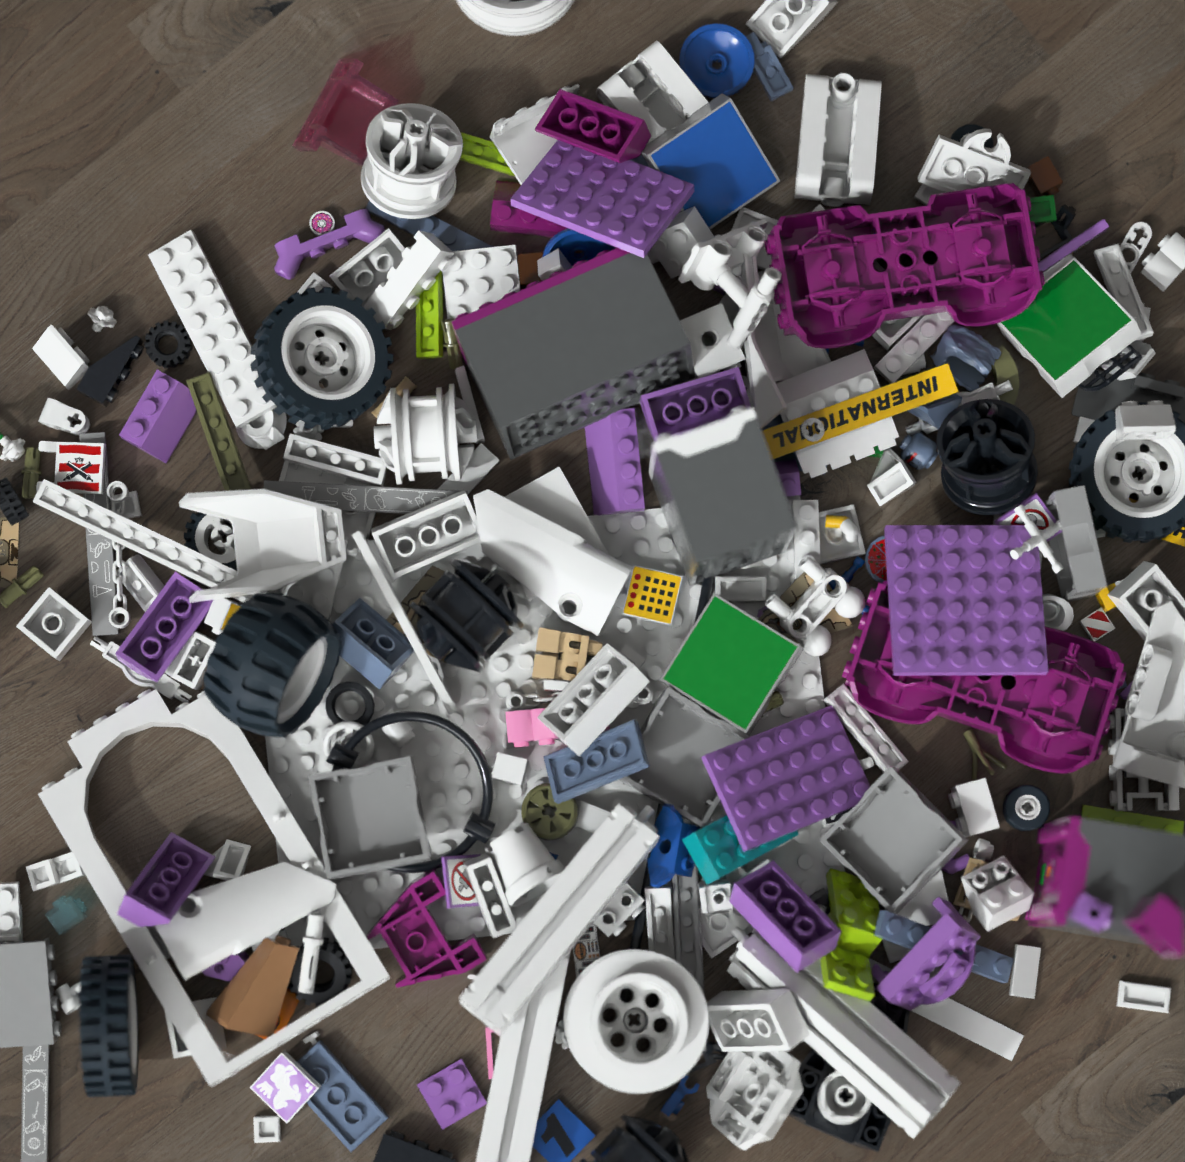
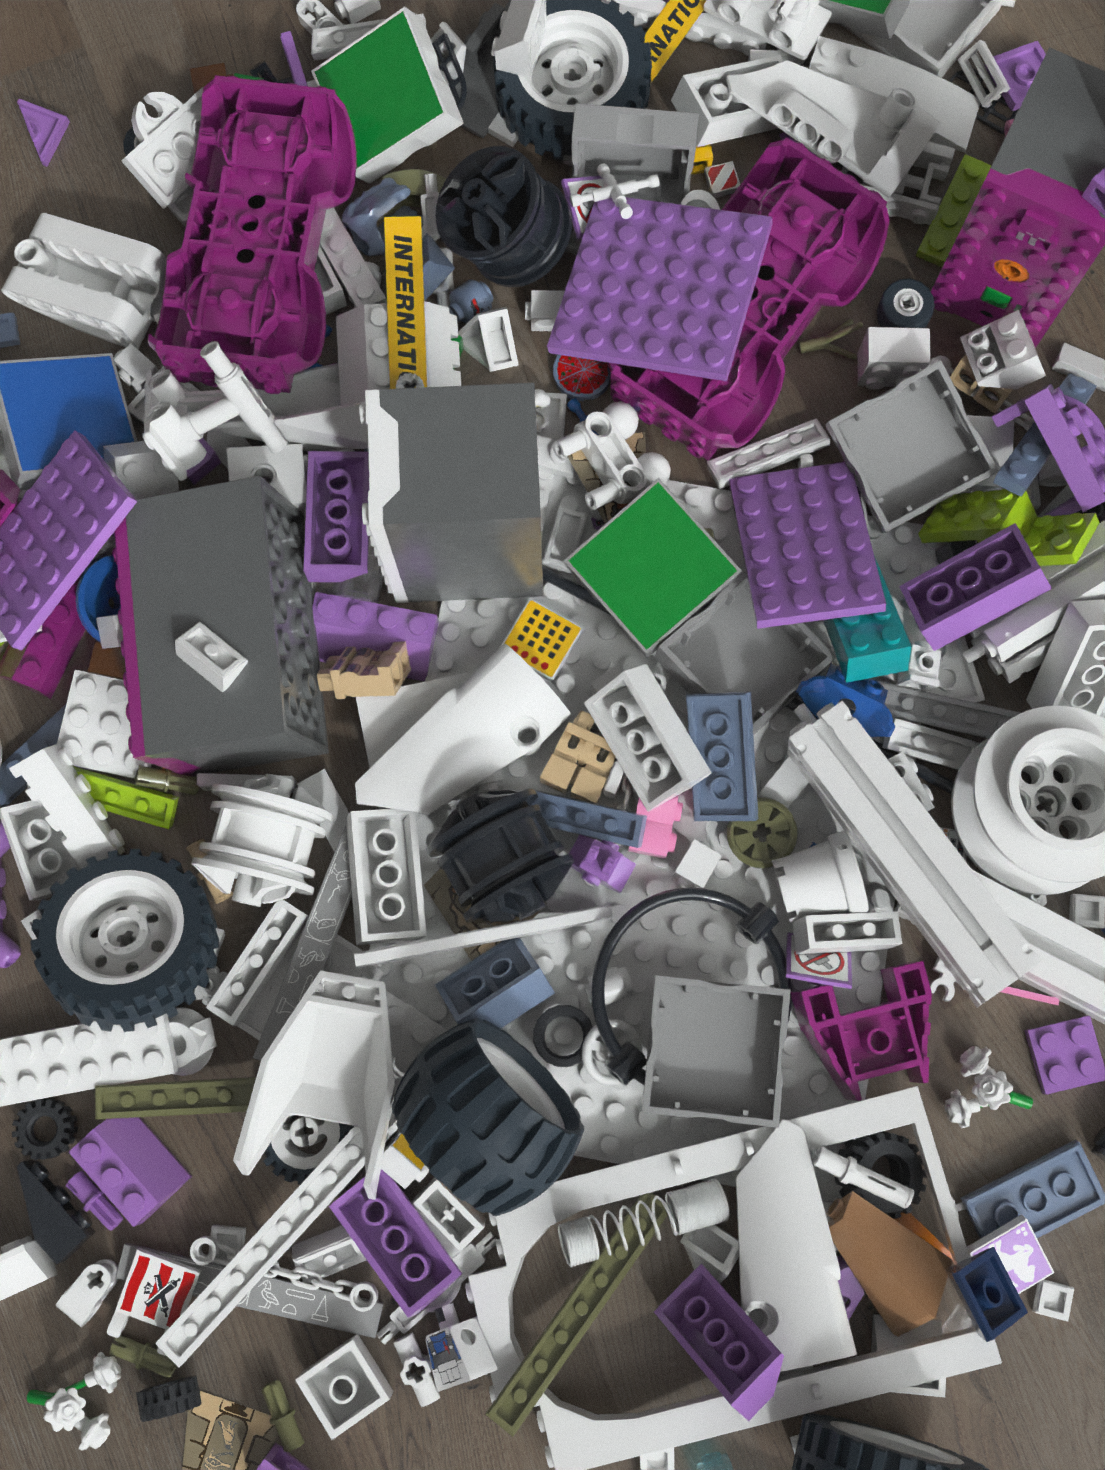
camera: 70 degrees left, 5 degrees down
(90, 663) = (424, 1385): none -> white axle
(102, 697) = (457, 1350): none -> white torso
(128, 399) = (94, 1200): none -> medium lavender axle
(156, 777) = (573, 1319): none -> olive tile
(251, 835) = (687, 1210): none -> white piece
(255, 1060) = (987, 1293): none -> dark blue slope
(405, 1033) = (991, 1088): none -> white plant
(488, 694) = (601, 863): none -> medium lavender hinge
(518, 673) = (592, 819): none -> sand blue plate
(541, 353) = (210, 656): none -> white slope
(568, 1083) = (1087, 910): none -> white tile
(582, 468) = (366, 672): none -> tan hips
(776, 201) = (133, 367): none -> white brick
(931, 511) = (543, 309): none -> white brick
(964, 52) = (44, 128): none -> medium lavender tile

